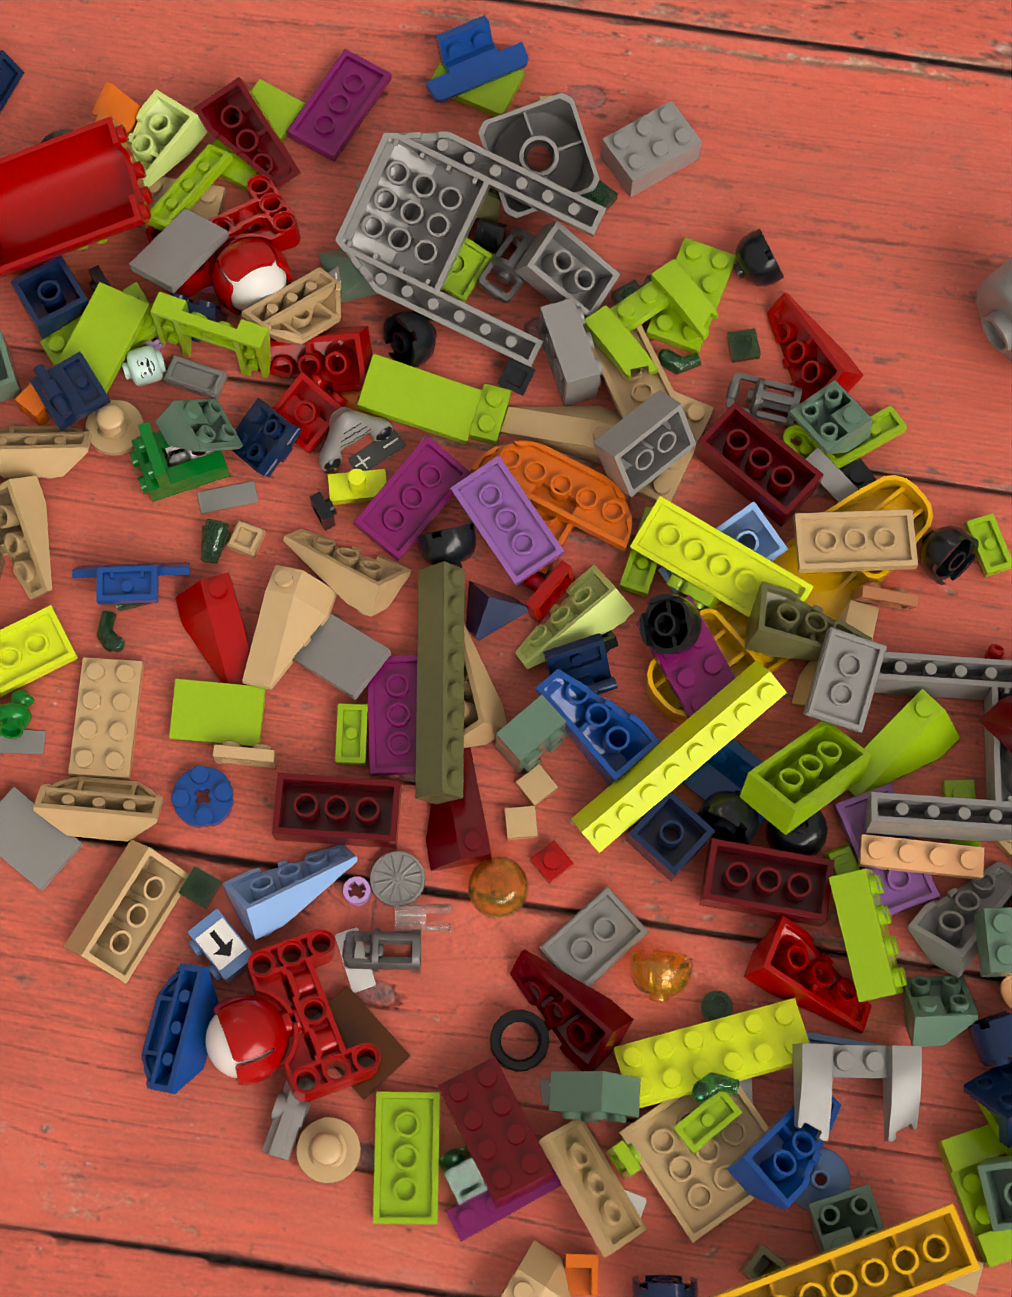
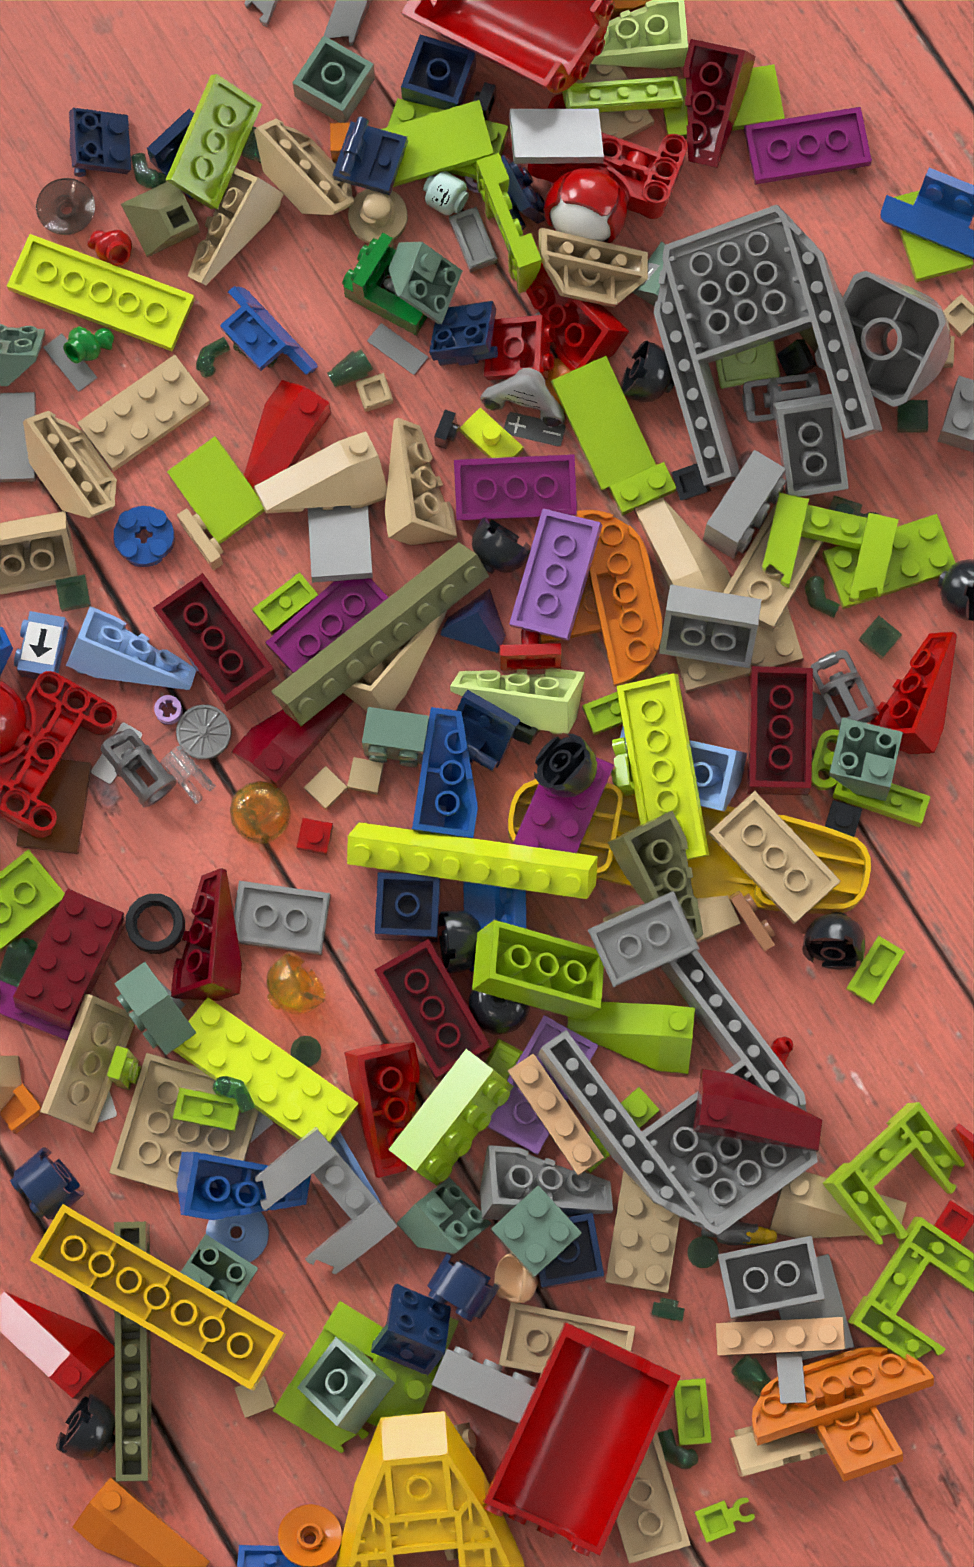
camera: 55 degrees right, 5 degrees up
(833, 480) = (821, 796): light grey sticker -> none

